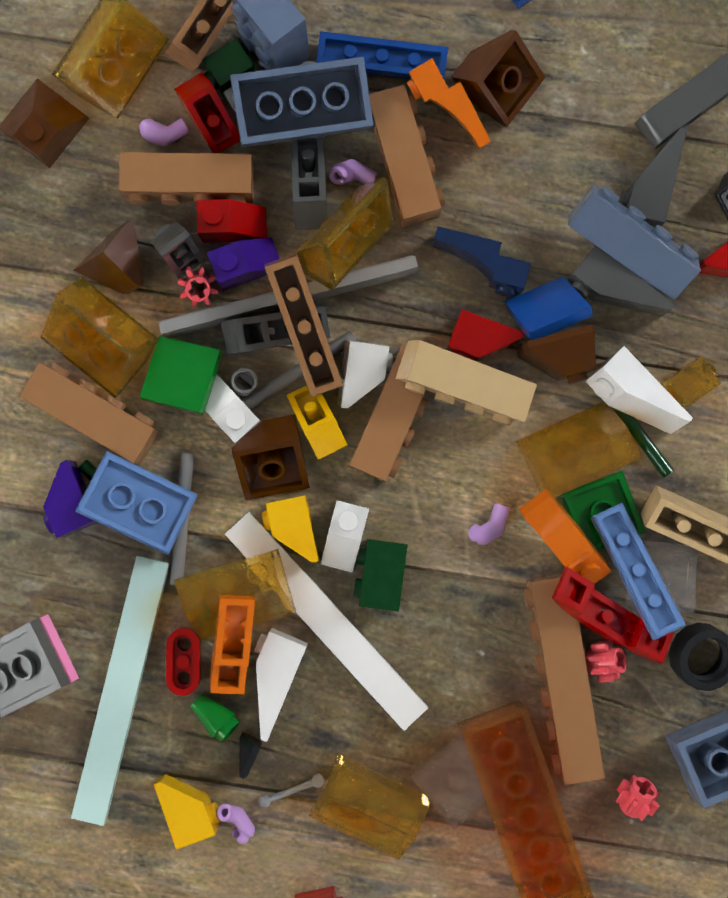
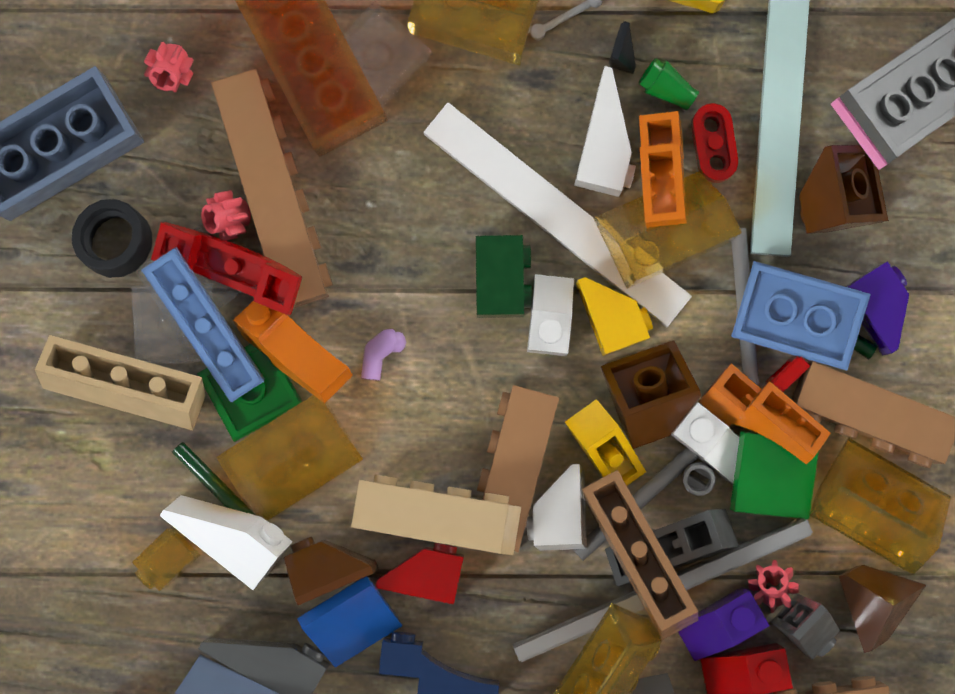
camera: 175 degrees right, 0 degrees up
(83, 603) = (842, 191): none -> reddish brown slope
(156, 456) = (788, 373): none -> red tile
(180, 427) = (765, 411): none -> orange slope

